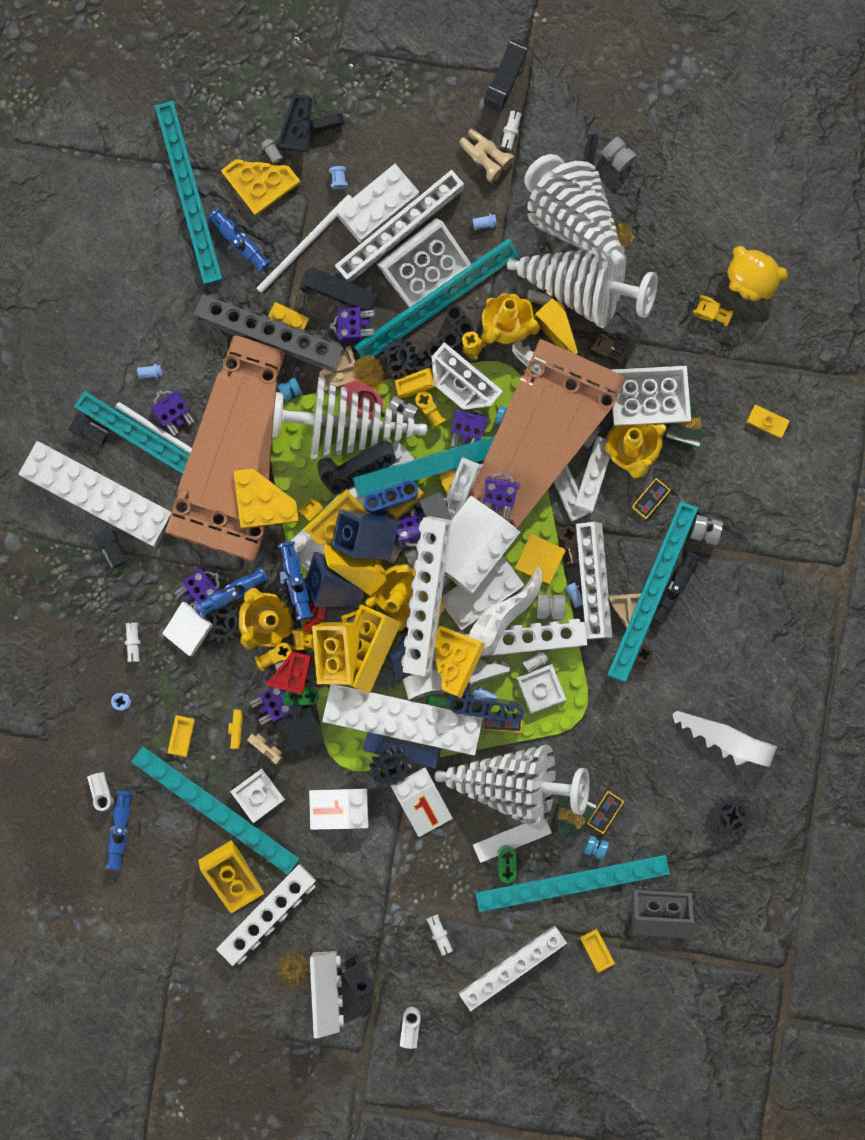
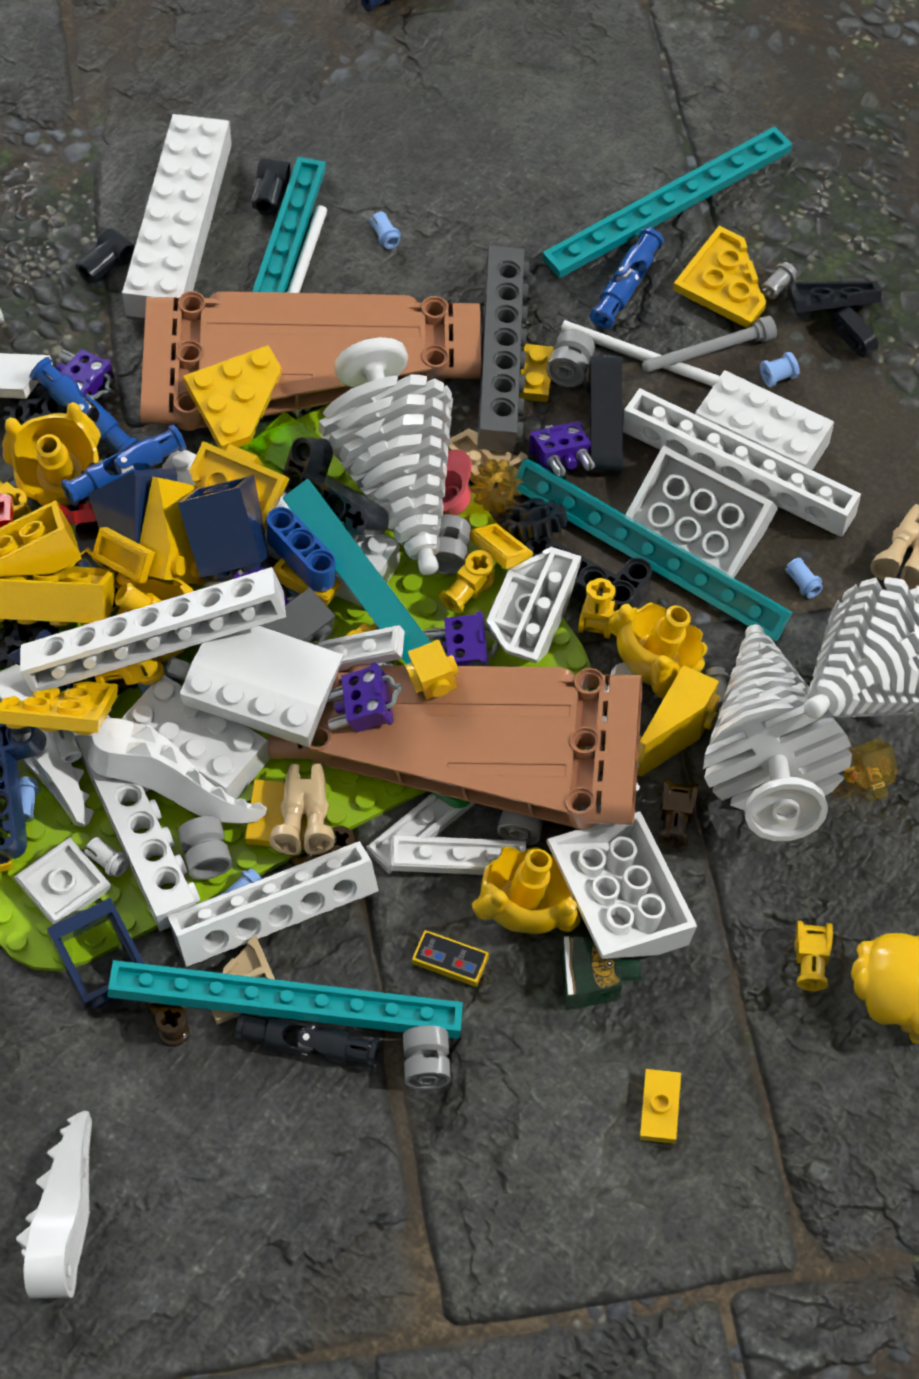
camera: 70 degrees right, 25 degrees down
(170, 403) = (338, 268): dark purple piece -> none
(288, 294) = (570, 358): none -> light grey wheel
(292, 480) = (276, 440): none -> clear neon green piece
(305, 175) = (763, 329): none -> light grey piece
(361, 598) = (123, 555): none -> yellow tile
(499, 451) = (432, 670): none -> yellow brick
(541, 546) = (300, 799): none -> tan piece
(574, 683) = (79, 924): none -> dark blue window

